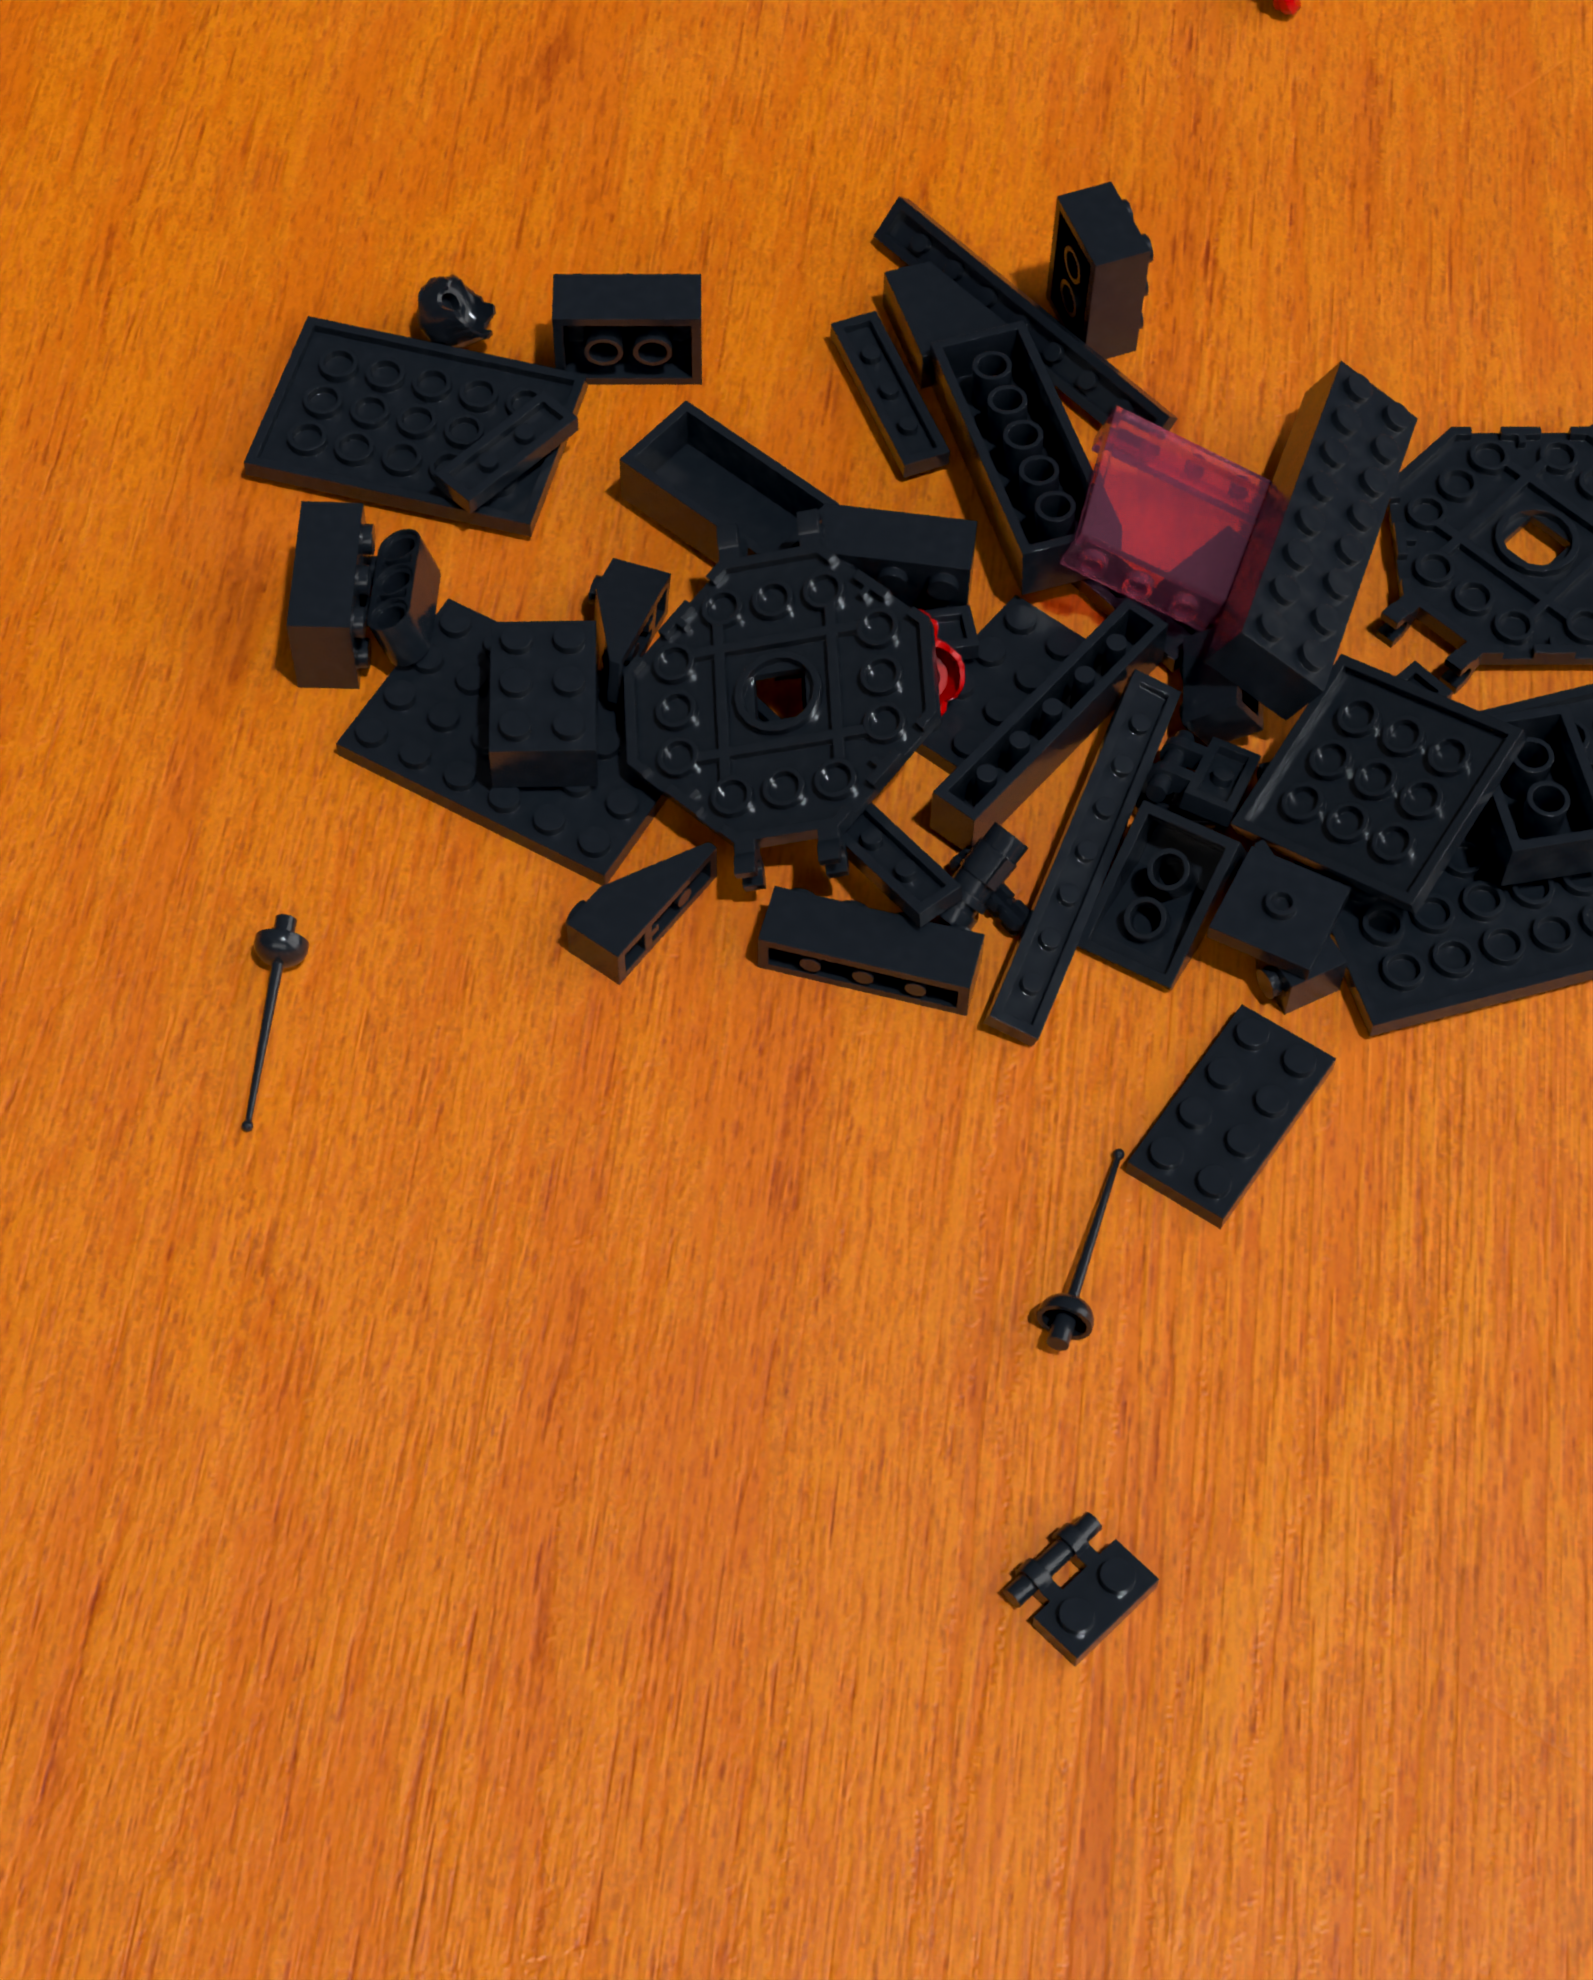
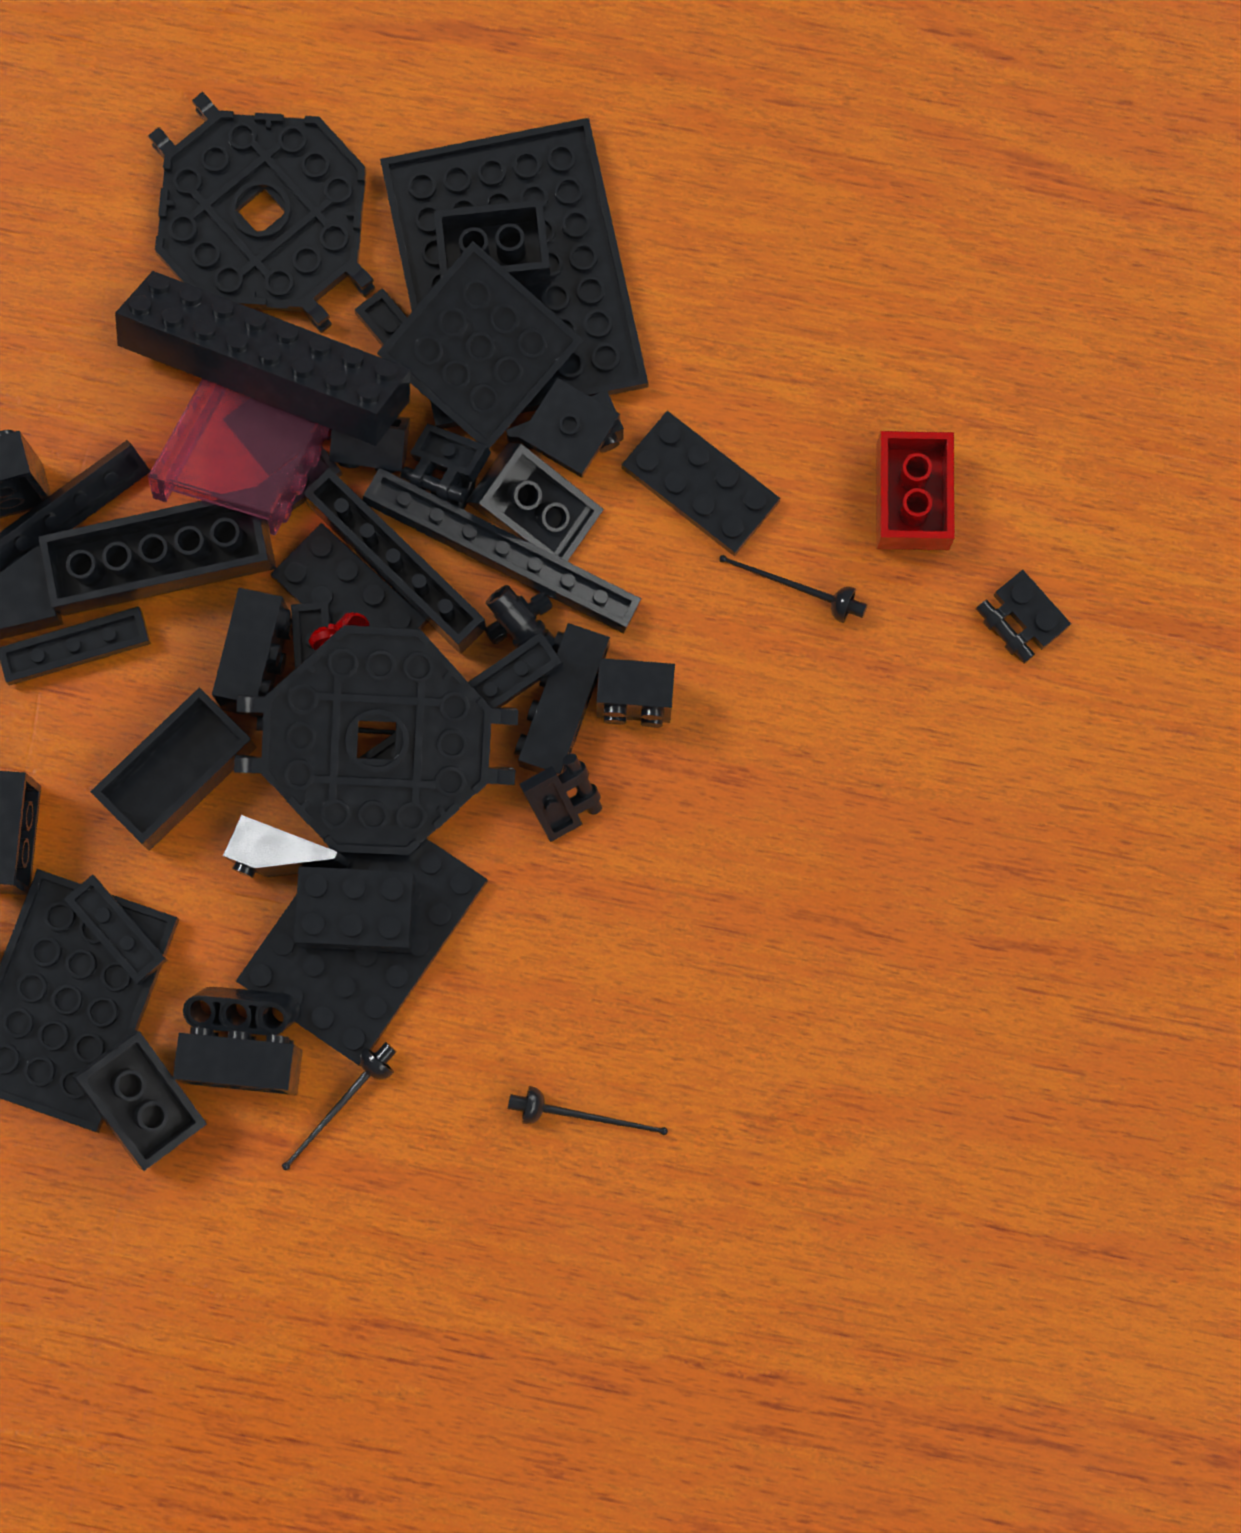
camera: 85 degrees left, 20 degrees up
(259, 487) = (139, 1100): none -> black brick
(333, 762) = (374, 1066): none -> black sword
(637, 910) = (527, 864): black slope -> none
(711, 937) = (551, 803): none -> black plate
(888, 1025) = (635, 692): none -> black brick
(1261, 1399) = (915, 490): none -> red brick

